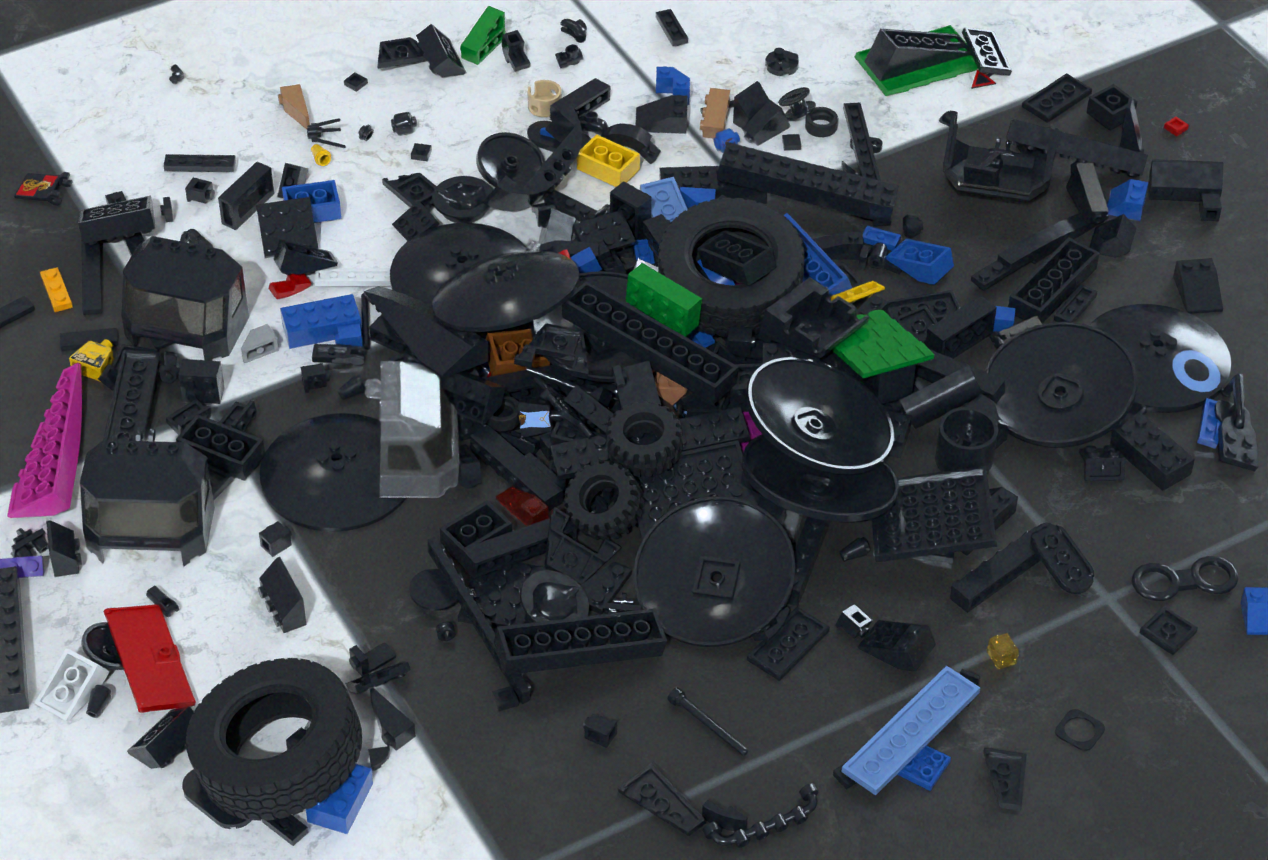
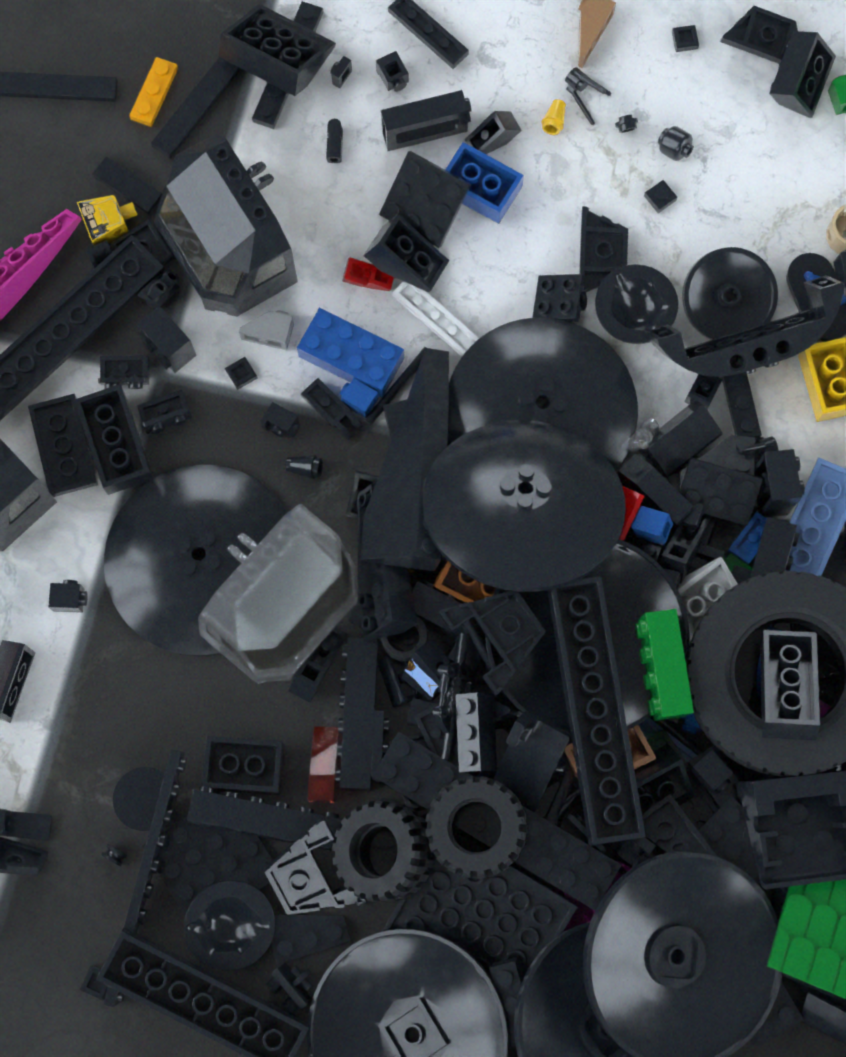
camera: 45 degrees right, 30 degrees up
(262, 376) = (241, 373): none -> black tile

